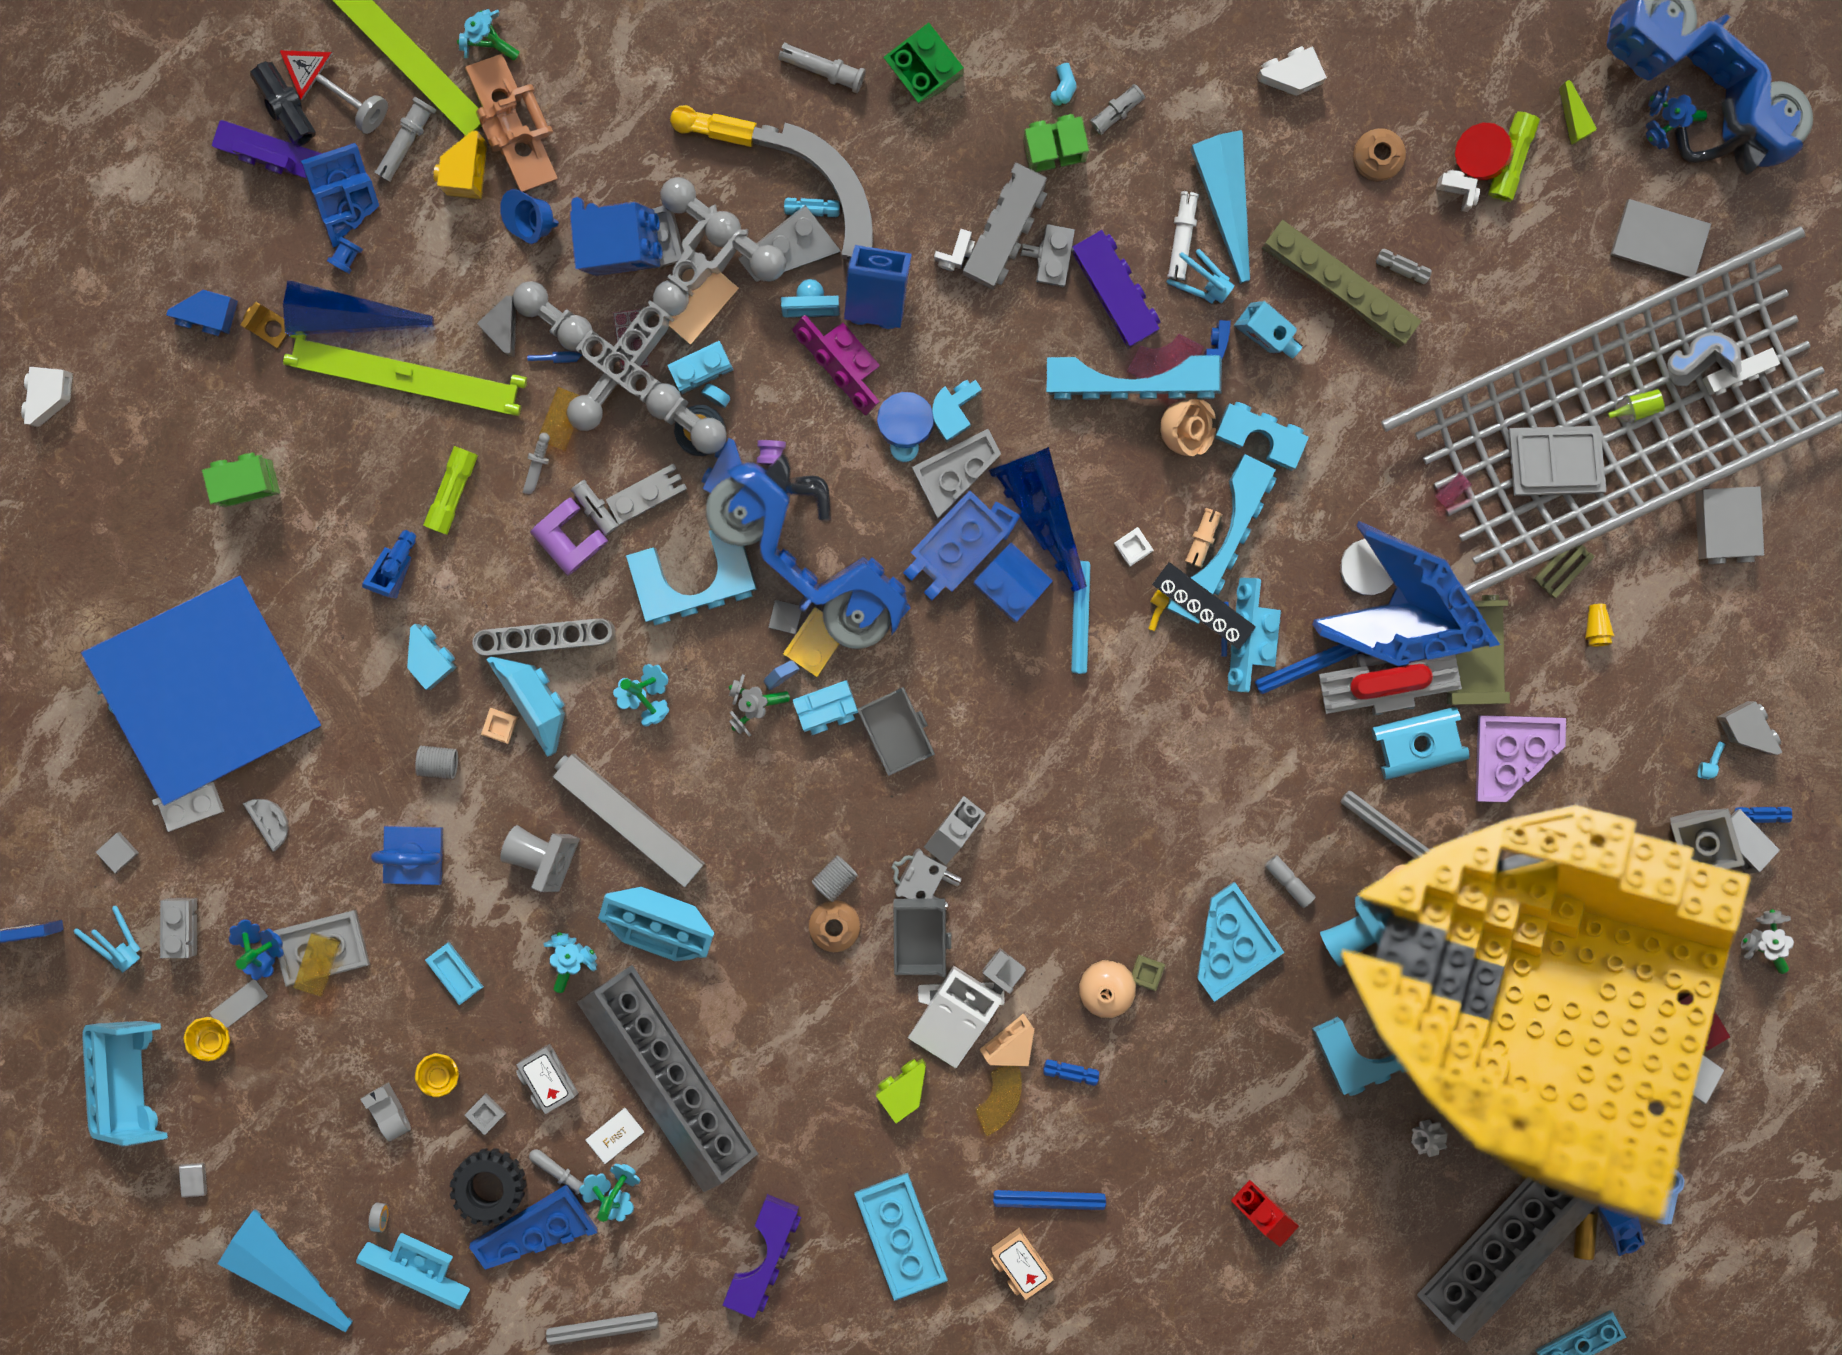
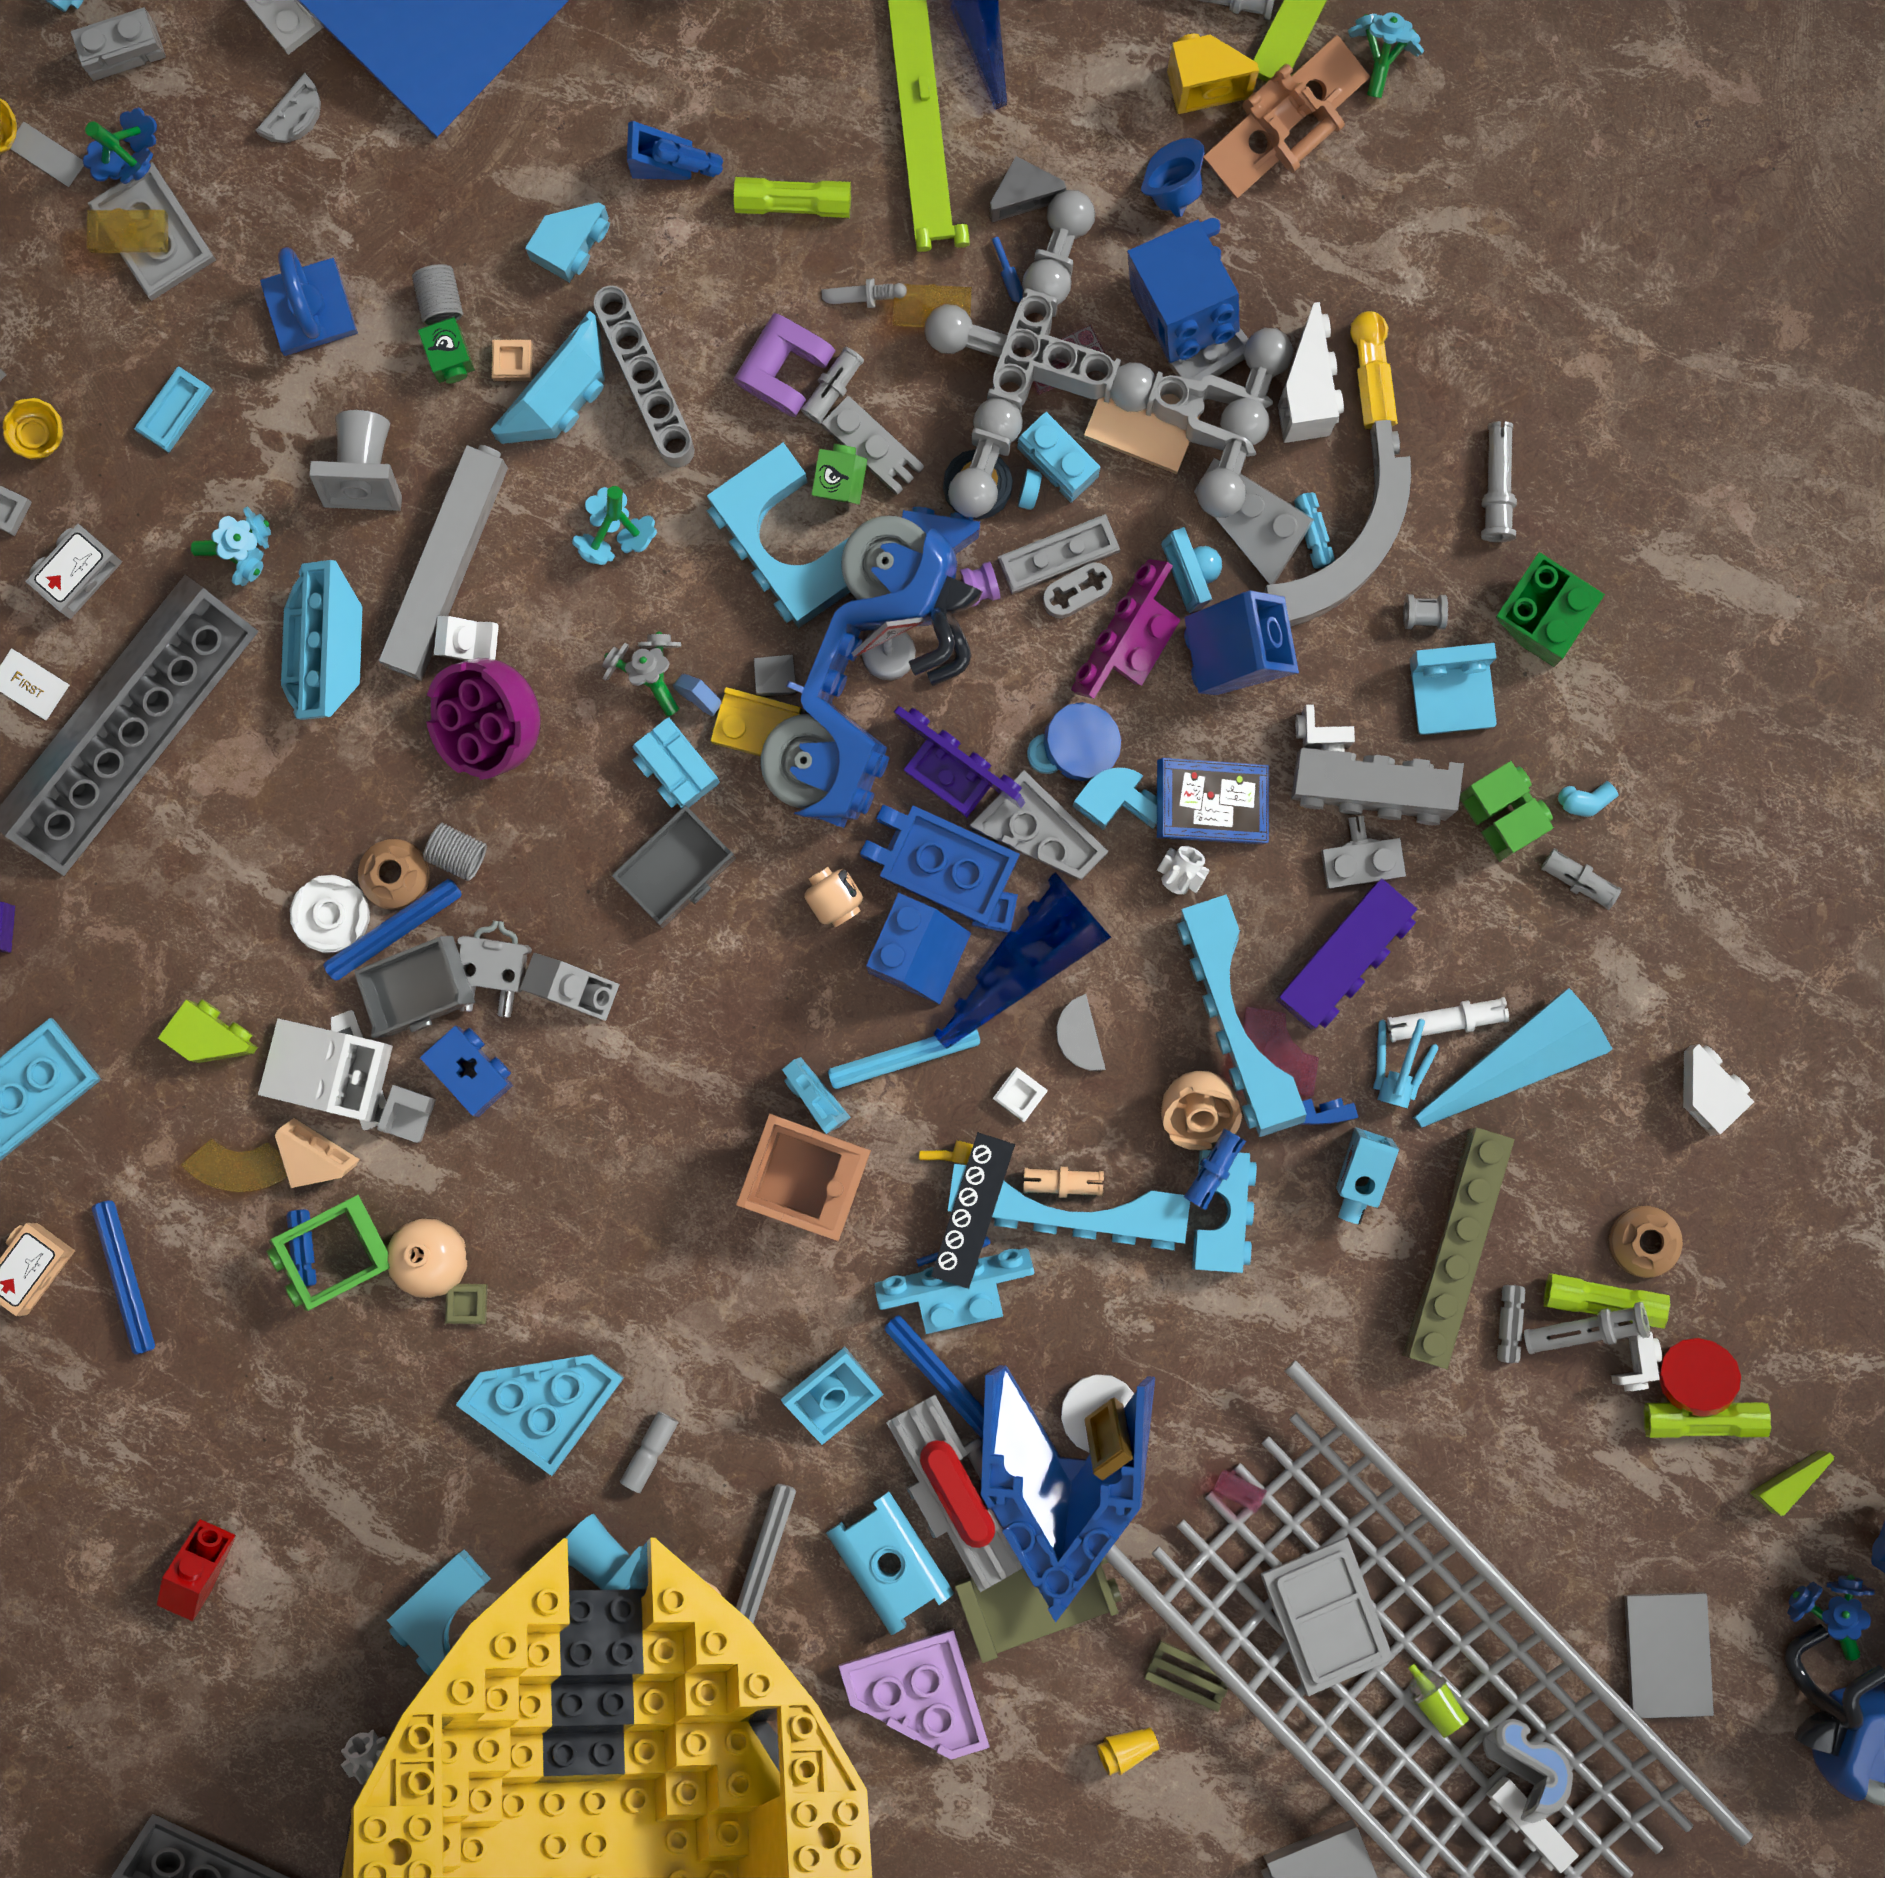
camera: 70 degrees right, 5 degrees down
(479, 768) = (446, 351): none -> green brick
(661, 524) = (839, 474): none -> bright green brick
(689, 822) = (465, 638): none -> white bracket
(715, 177) = (1309, 401): none -> white slope
(750, 828) = (483, 717): none -> magenta cylinder
(767, 391) = (1058, 554): none -> light grey tile
(790, 387) = (1073, 582): none -> light grey beam
(797, 532) = (889, 649): none -> light grey piece
(847, 979) = (329, 913): none -> white tile
(873, 939) = (392, 929): none -> blue axle
(895, 150) = (1425, 611): none -> light grey bush
(897, 518) = (951, 773): none -> dark purple bracket
(955, 628) = (833, 896): none -> light nougat head
(957, 150) = (1453, 688): none -> medium azure bracket
(978, 344) = (1212, 801): none -> tile
(981, 932) = (446, 1062): none -> blue brick
(1018, 381) = (1183, 870): none -> white gear
(1079, 1024) = (366, 1234): none -> bright green window
(1089, 686) = (815, 1095): none -> medium azure wing
(1107, 493) = (1078, 1036): none -> light grey tile
(1144, 713) = (803, 1177): none -> nougat piece
(1233, 431) = (1214, 1169): none -> blue pin
(1294, 744) = (832, 1396): none -> medium azure slope
(1390, 566) = (1108, 1439): none -> pearl gold tile
(1420, 179) = (1588, 1297): none -> lime axle
(1427, 200) = (1609, 1331): none -> light grey pin

